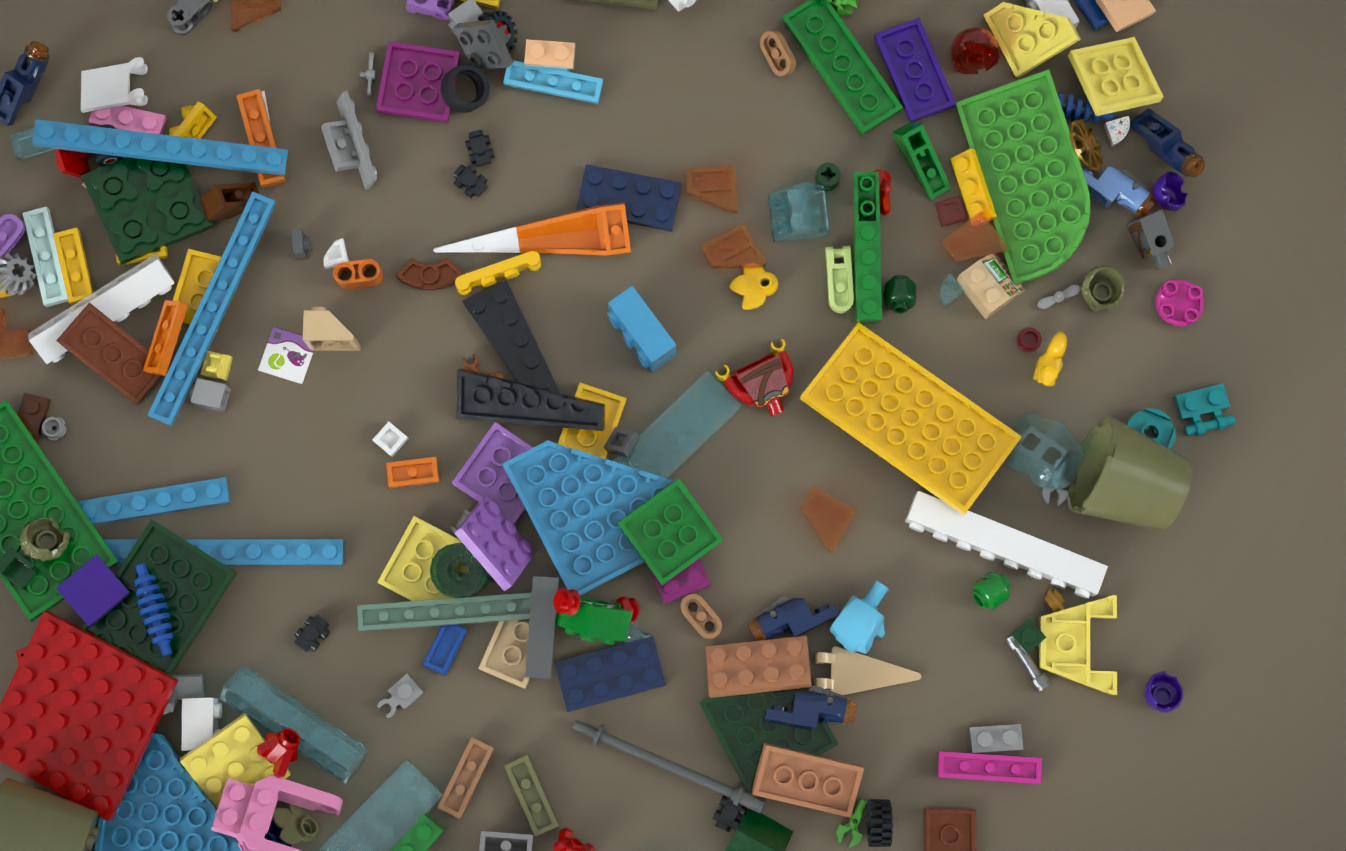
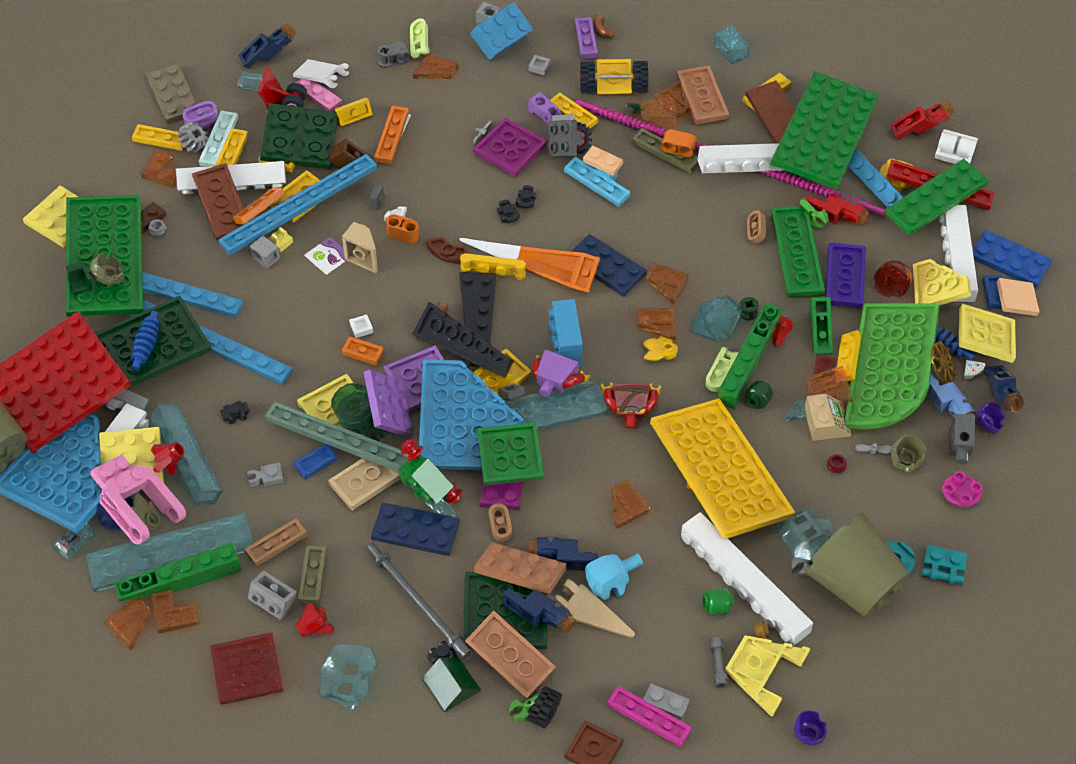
camera: 30 degrees right, 25 degrees down
(93, 590) = (116, 314): dark purple tile -> none
(160, 147) = (327, 107): dark azure plate -> none
(347, 144) = (442, 159): light grey bracket -> none
(480, 81) = (543, 149): black tyre -> none
(541, 627) = (384, 471): dark grey tile -> none
(659, 391) = (556, 373): none -> medium lavender torso
(1027, 636) = (727, 641): dark green plate -> none
(1050, 363) = (842, 482): yellow animal -> none

